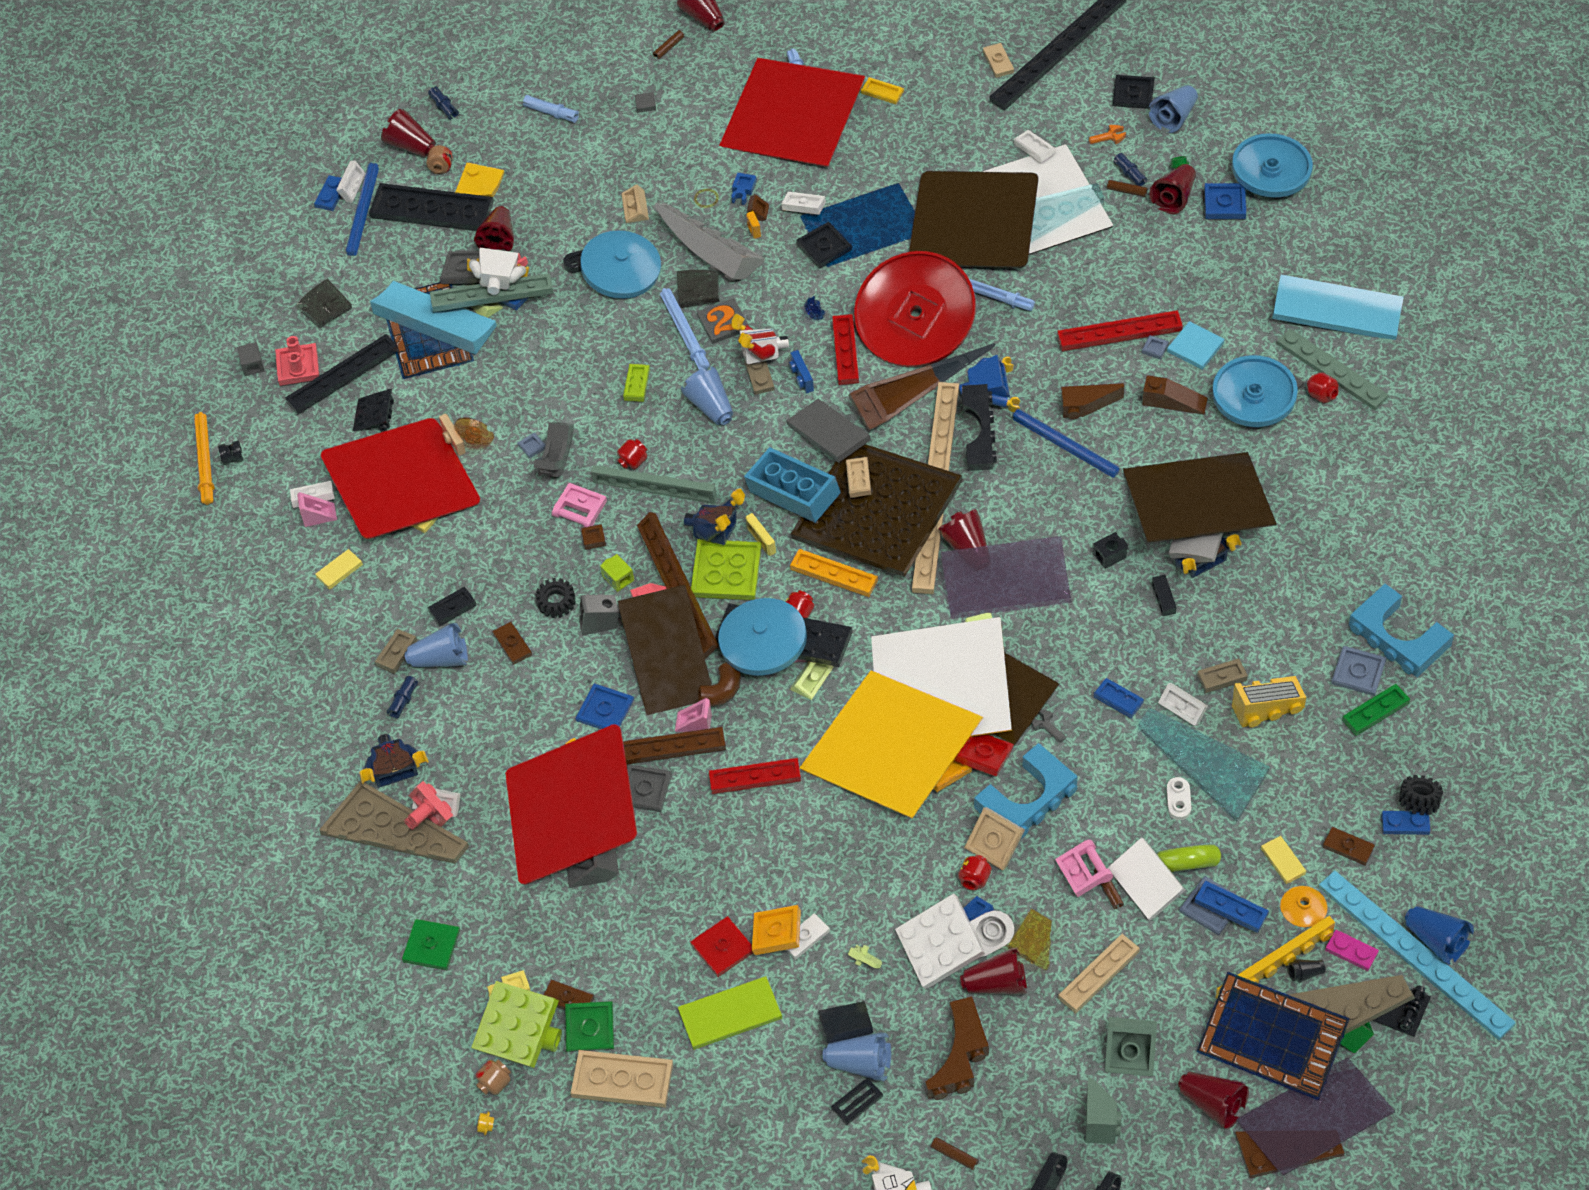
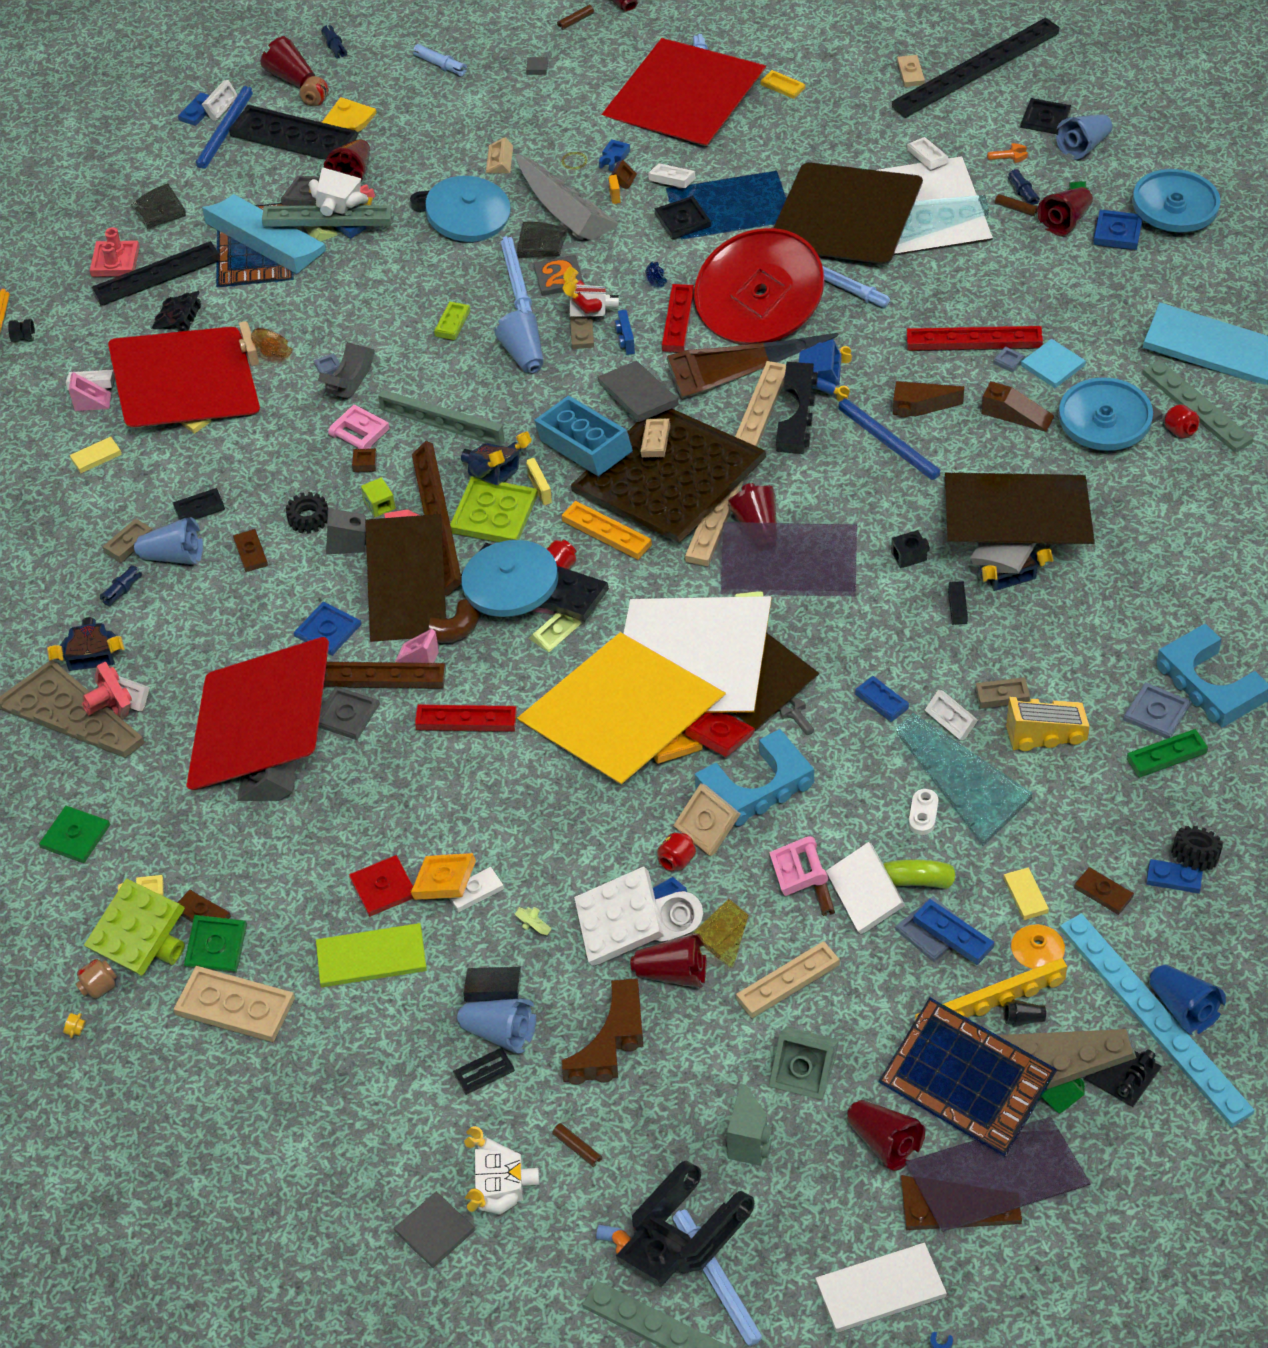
camera: 10 degrees right, 5 degrees down
(250, 359) = (69, 247): dark grey brick -> none
(632, 454) = (427, 386): red head -> none
(1352, 950) = (1082, 1001): dark pink plate -> none

